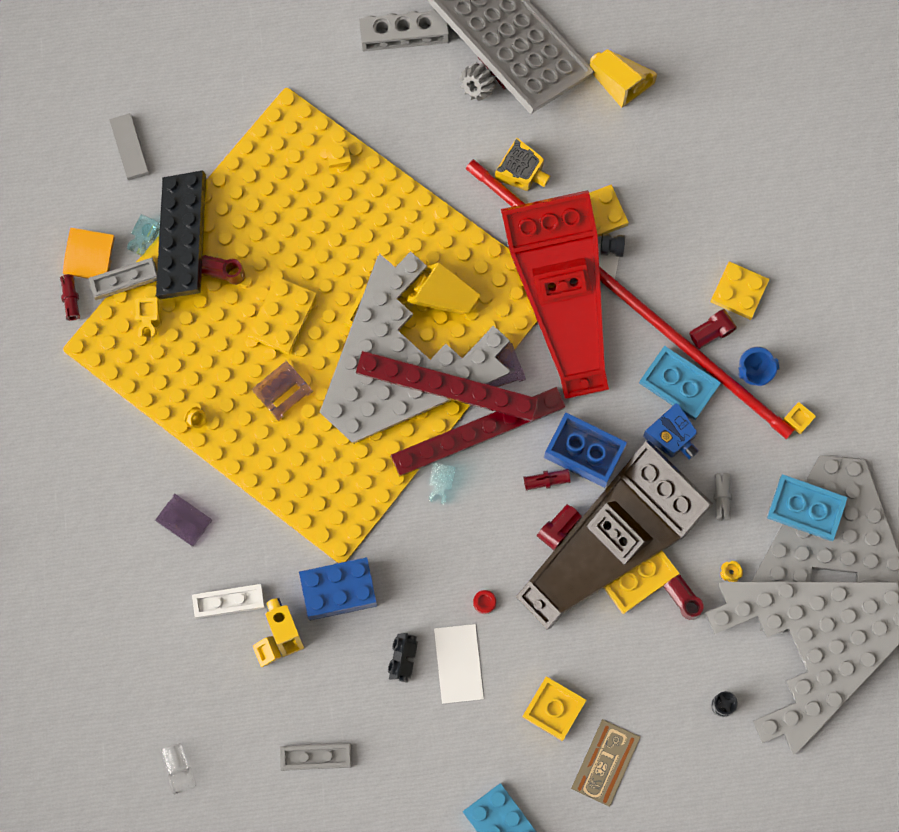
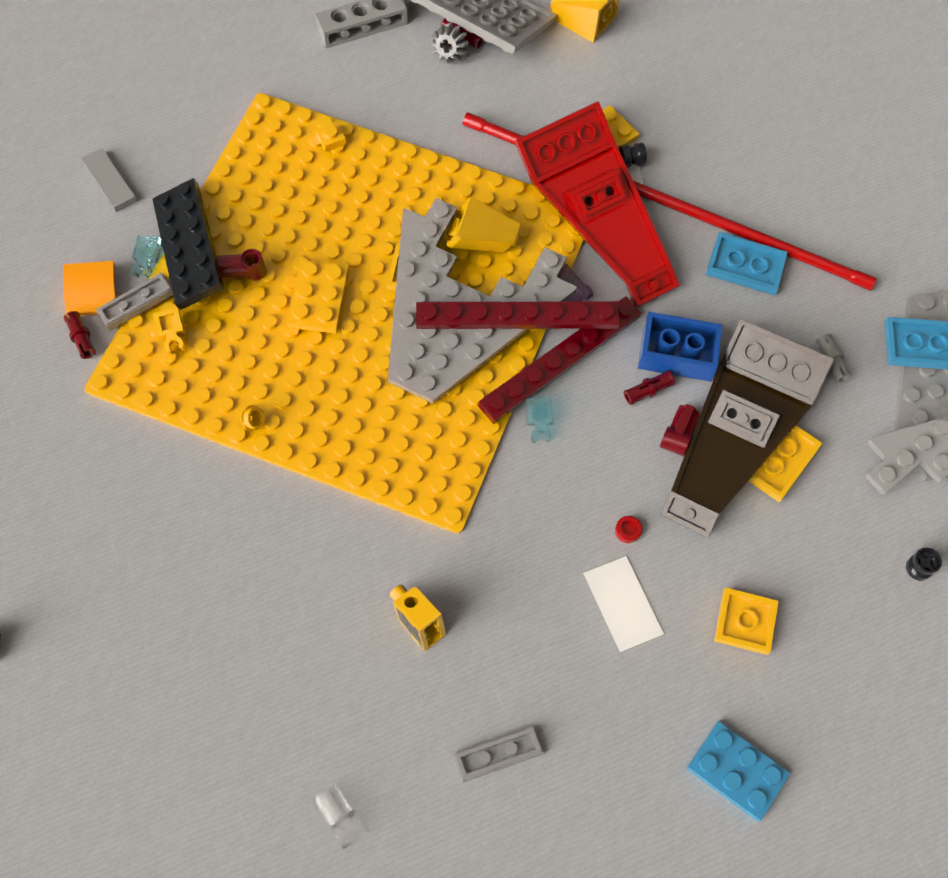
camera: 20 degrees left, 10 degrees down
(183, 520) = (268, 532): clear purple plate -> none
(228, 601) = (344, 605): white plate -> none
(267, 651) = (405, 648): yellow plate -> none
(276, 385) = (333, 363): plate -> none
(337, 589) = (465, 557): blue brick -> none
(403, 646) = (558, 601): black hinge -> none
(521, 167) = (518, 108): torso -> none
(605, 763) = (822, 666): sticker -> none
(673, 433) = (761, 307): blue torso -> none
(682, 595) = (836, 466): dark red piece -> none
(717, 326) = (762, 203): dark red piece -> none
(737, 571) = (874, 423): yellow plate -> none
(739, 290) = (769, 169): yellow plate -> none
(757, 366) = (818, 227): blue cap -> none
(799, 417) = (876, 266): yellow plate -> none

